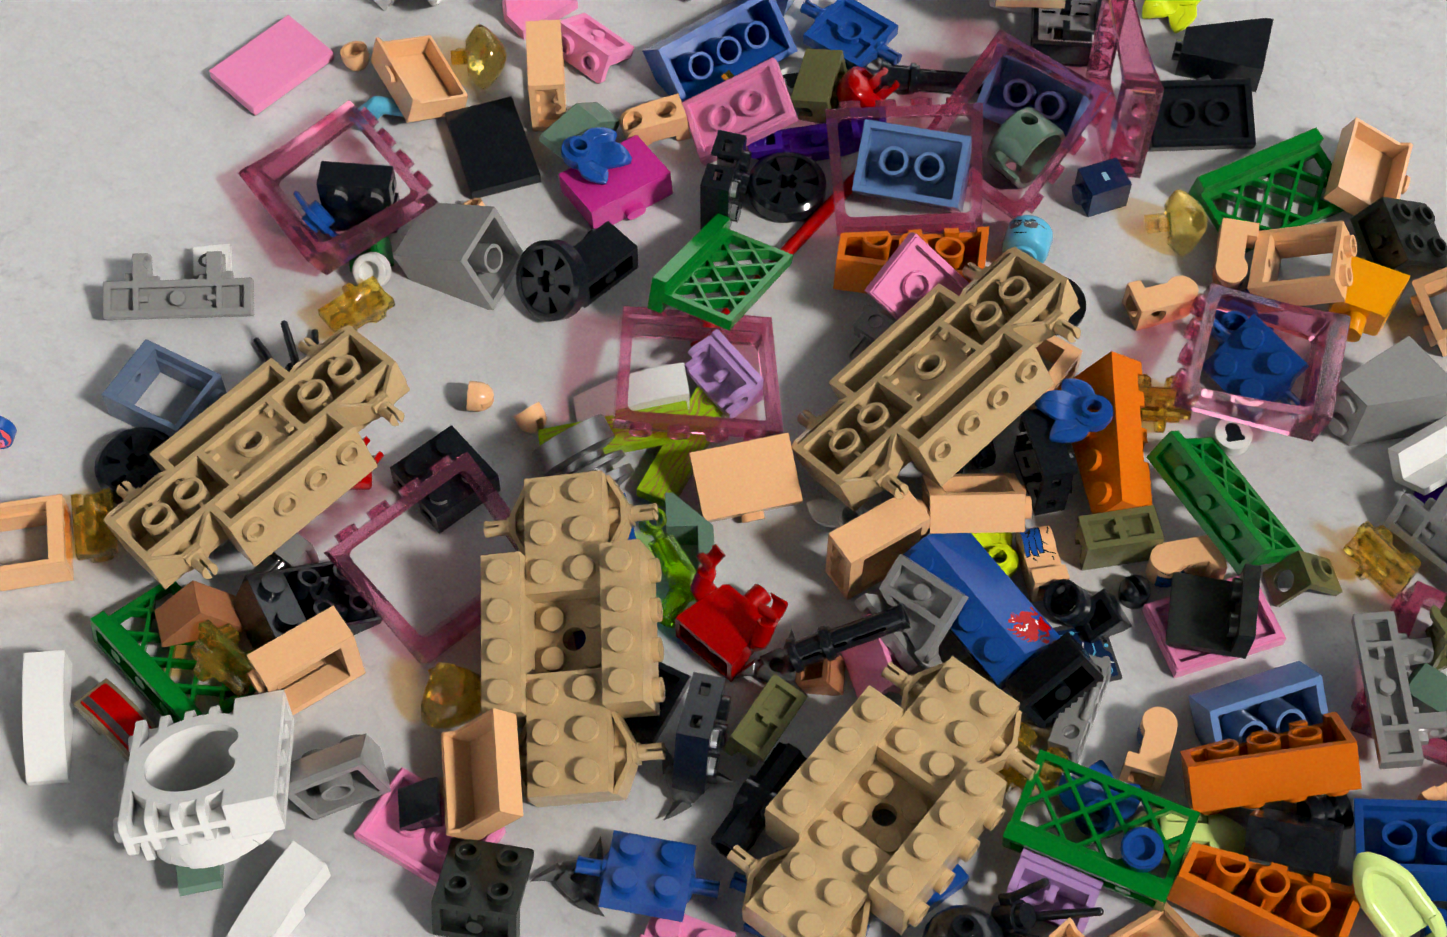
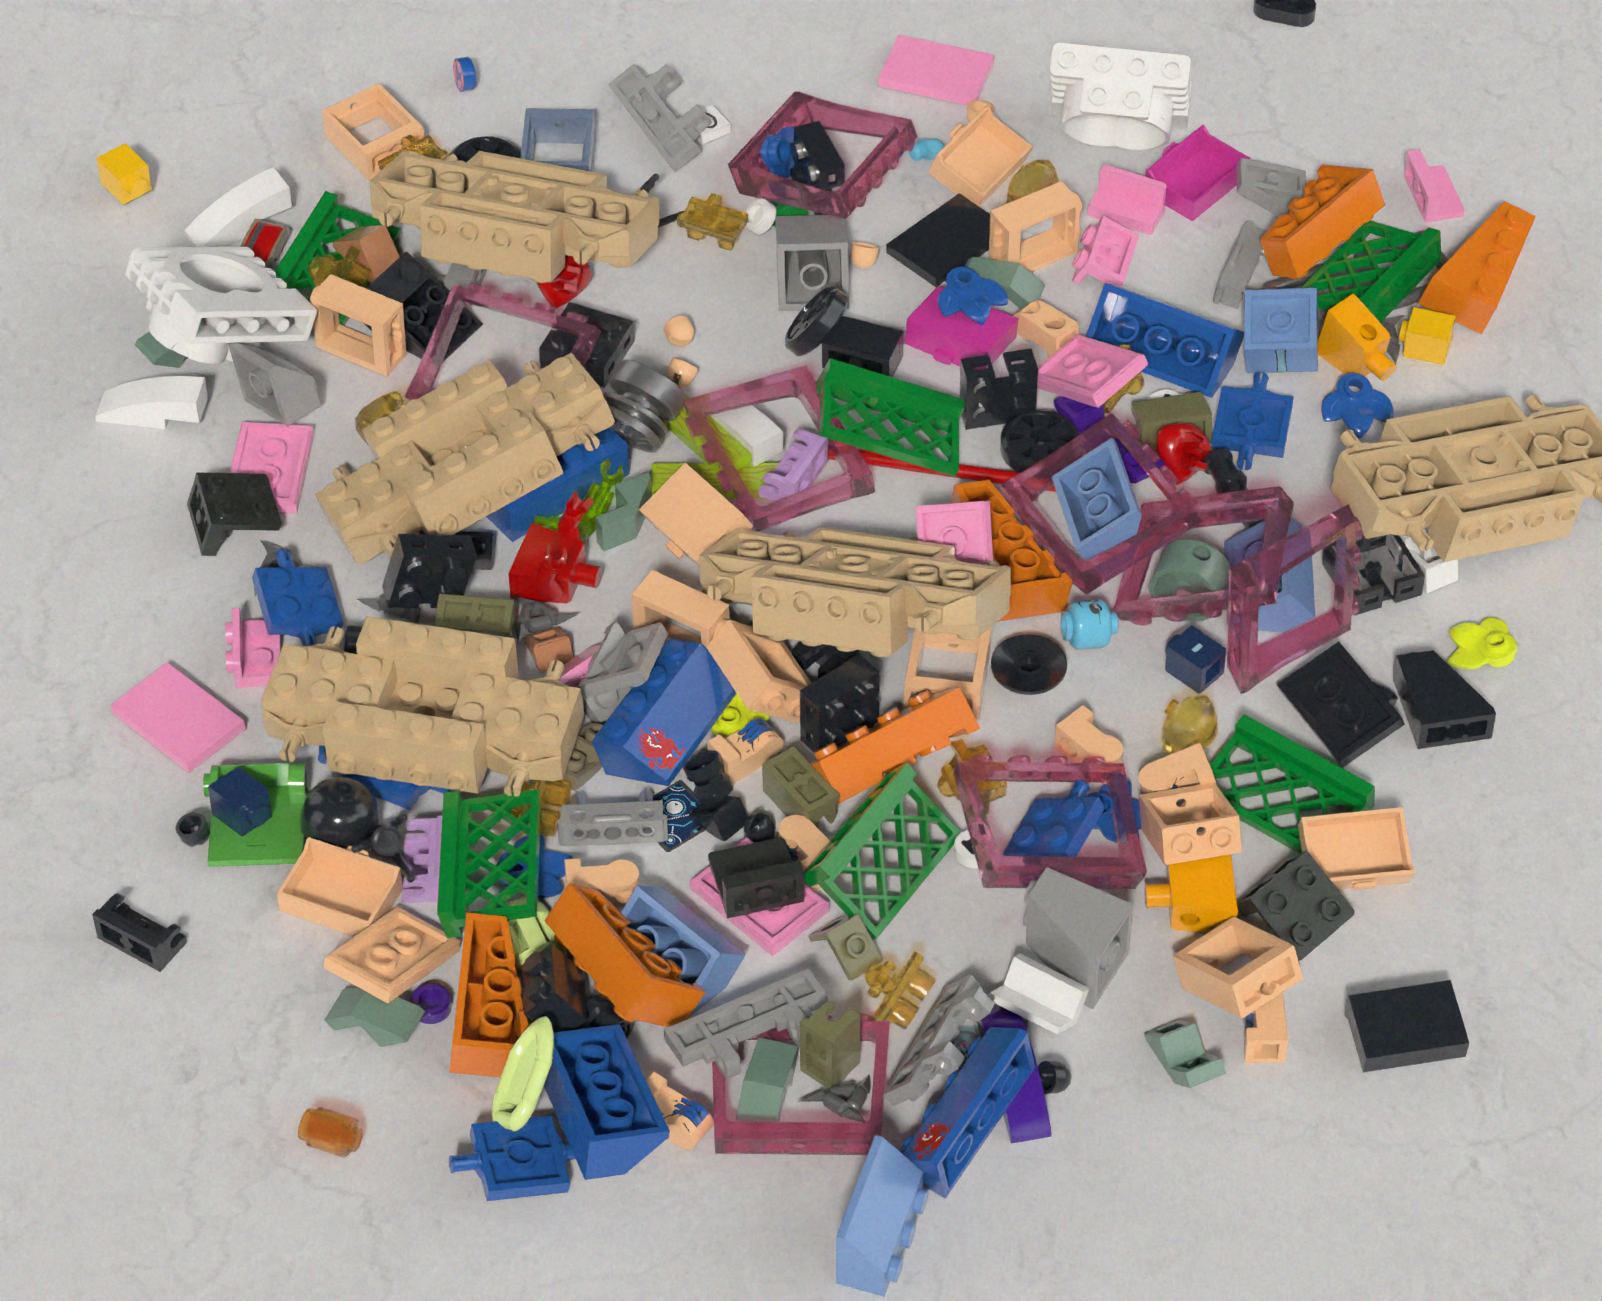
camera: 65 degrees right, 10 degrees down
(420, 805) = (283, 446): black slope -> none
(481, 776) = (315, 456): light nougat container -> none
(829, 642) = (564, 624): black pin -> none
(1054, 680) = (616, 782): black brick -> none
(1071, 411) = (880, 686): blue plate -> none
(1141, 849) = (479, 883): blue tile -> none

